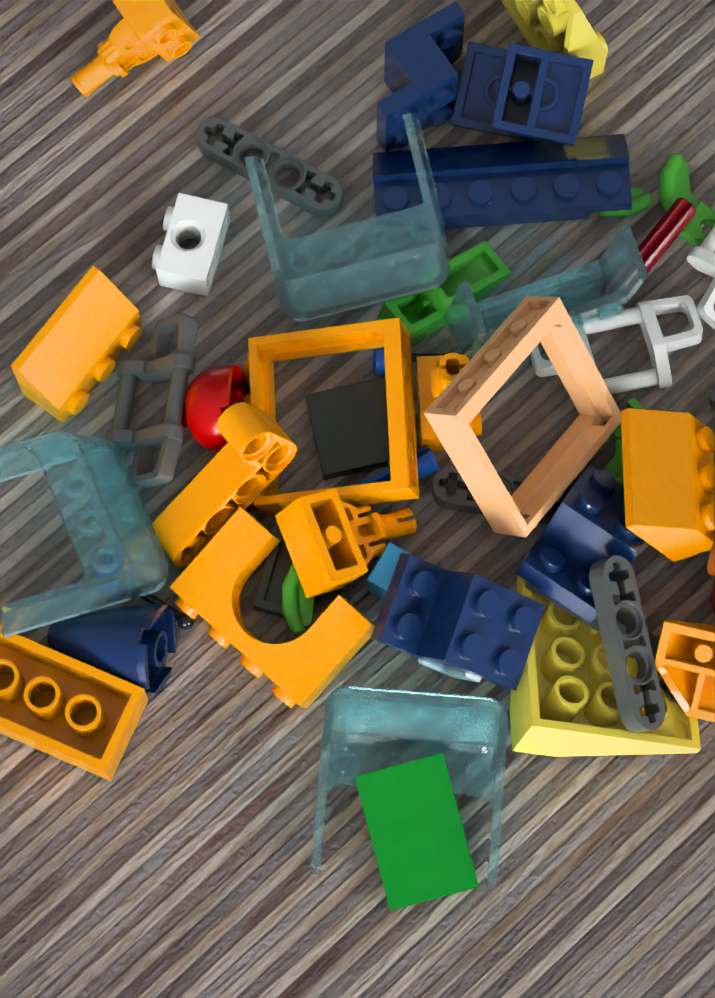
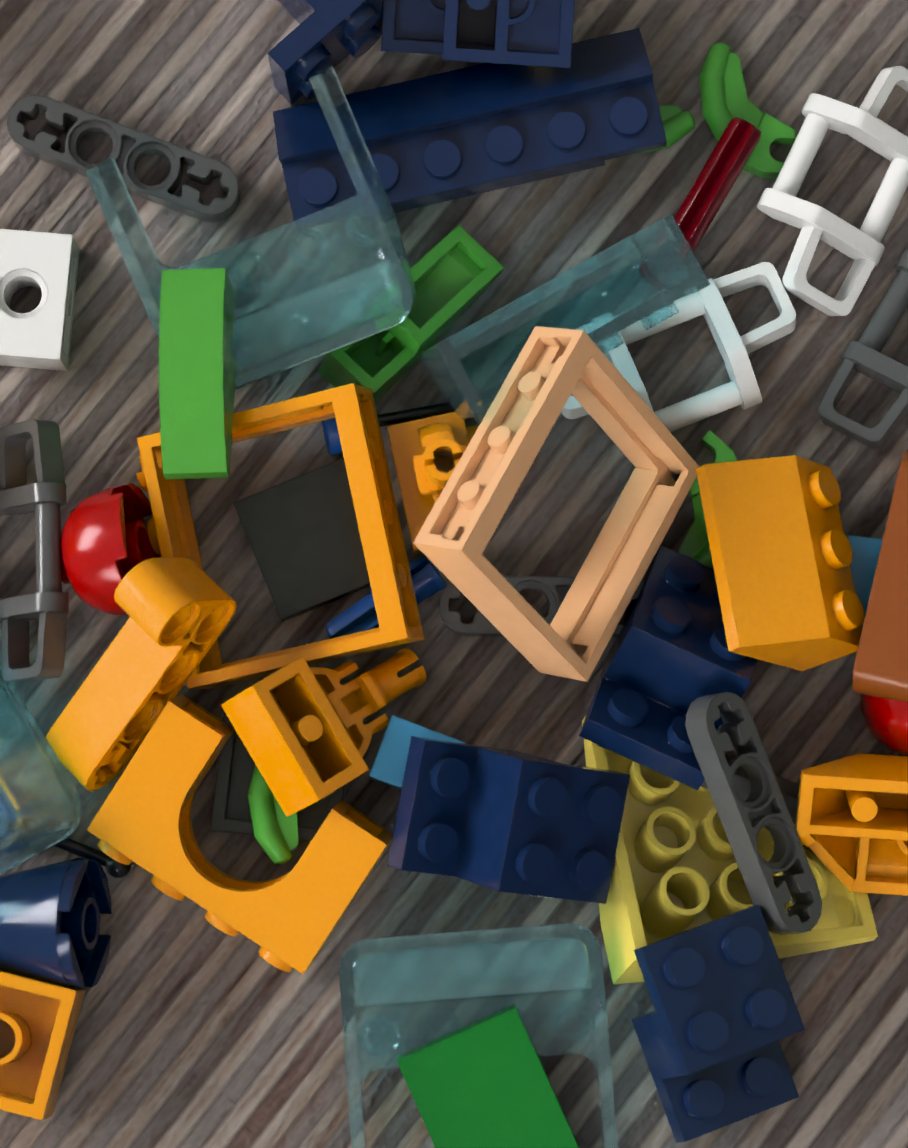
camera: 10 degrees left, 10 degrees up
(295, 297) = (196, 373): none -> bright green slope
(580, 784) = (717, 1023): none -> dark blue bracket

